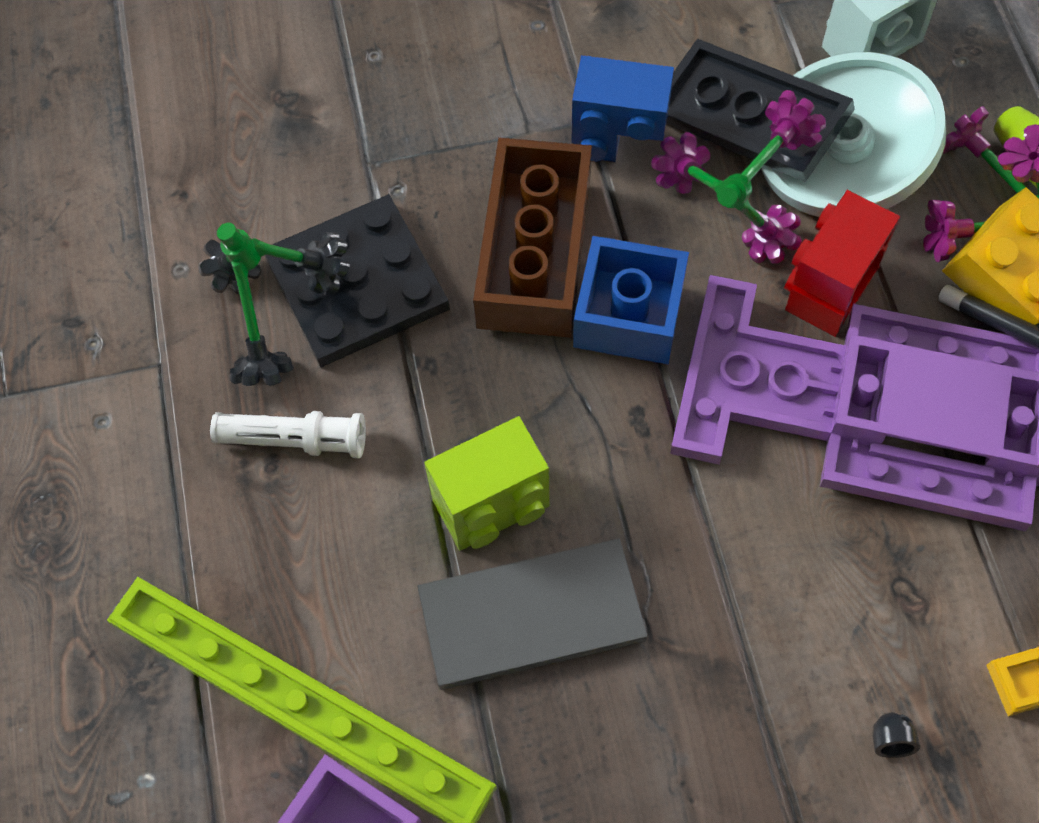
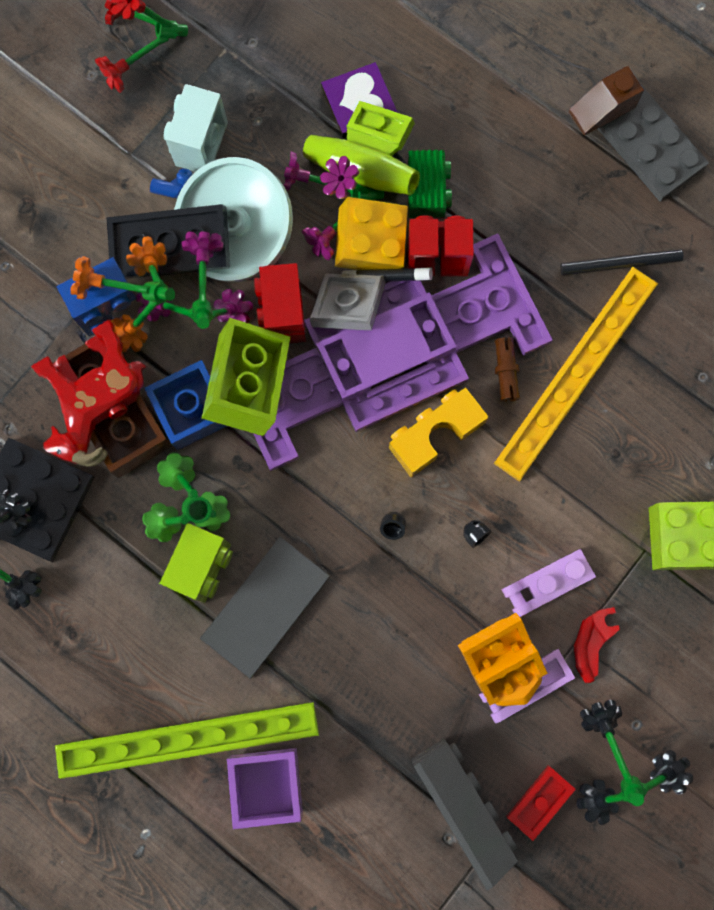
camera: 40 degrees left, 15 degrees up
(312, 433) = (80, 603): white pin -> none
(523, 197) = (92, 397): none -> red animal
(552, 375) = (202, 510): none -> bright green plant
(695, 123) = (156, 292): none -> orange plant
(730, 304) = (246, 377): none -> lime brick
(778, 642) = (393, 526): none -> black hinge
(792, 59) = (171, 188): none -> blue arm
(931, 317) = (347, 301): none -> light grey tile
(981, 556) = (457, 413): none -> yellow arch

